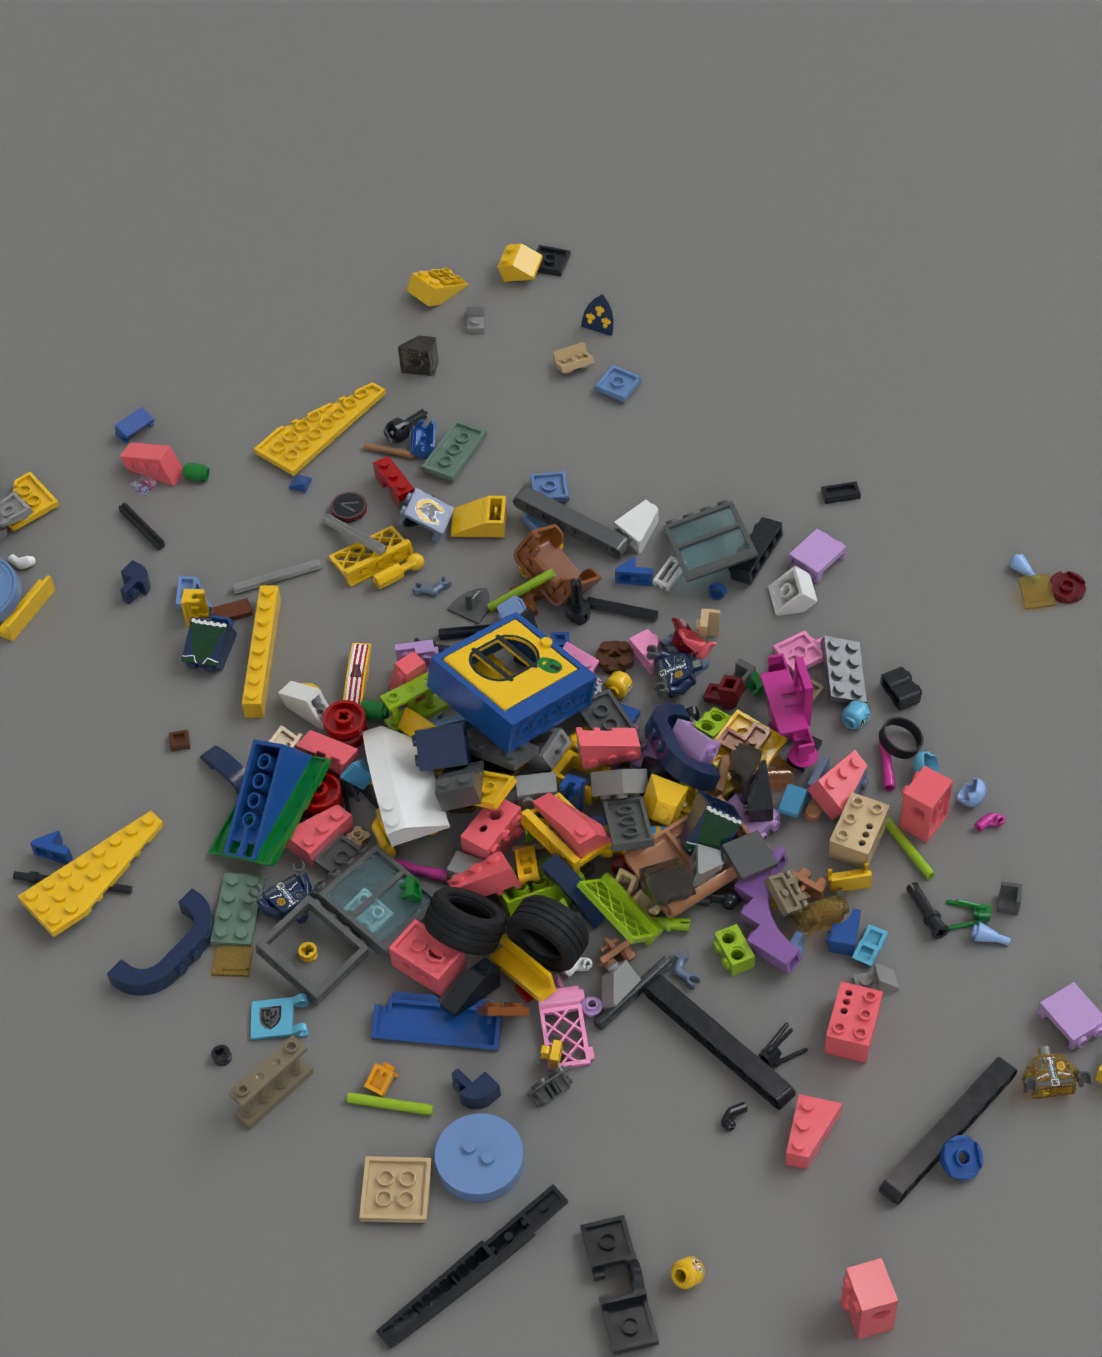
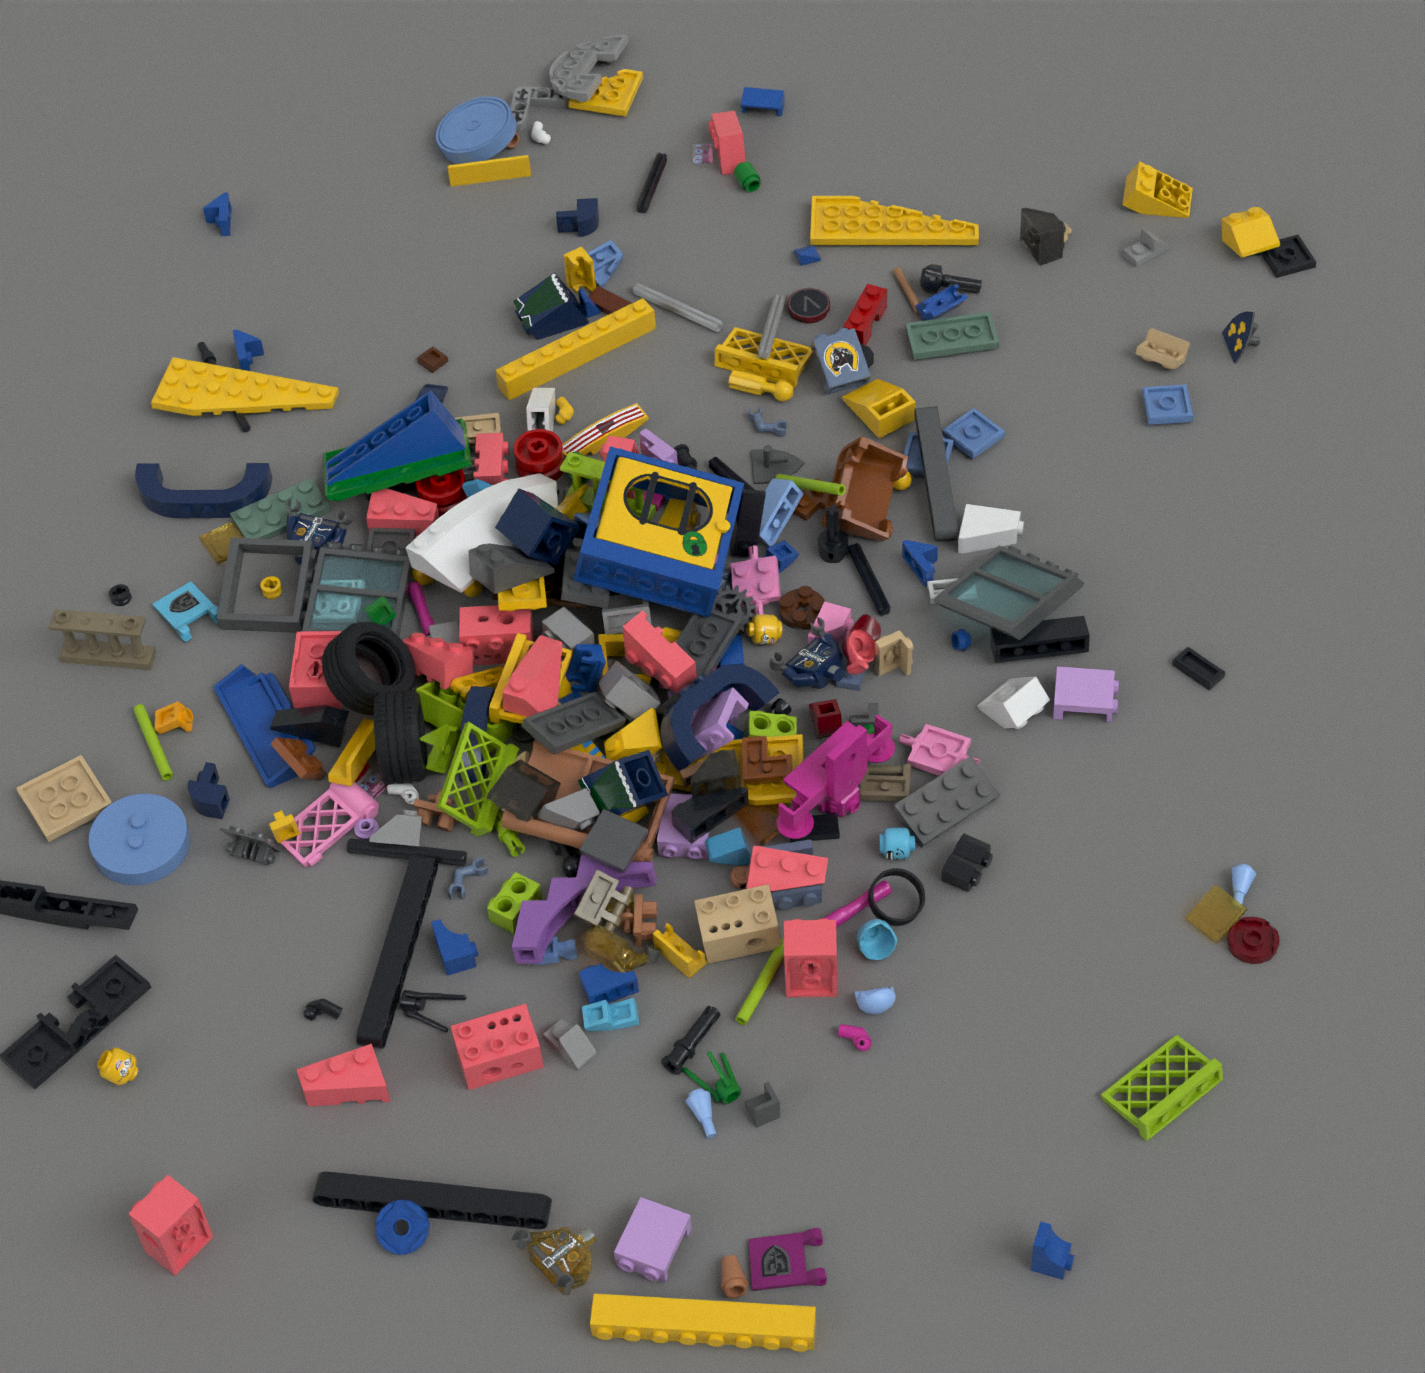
camera: 55 degrees right, 0 degrees up
(744, 1008) = (455, 949): none -> blue arch

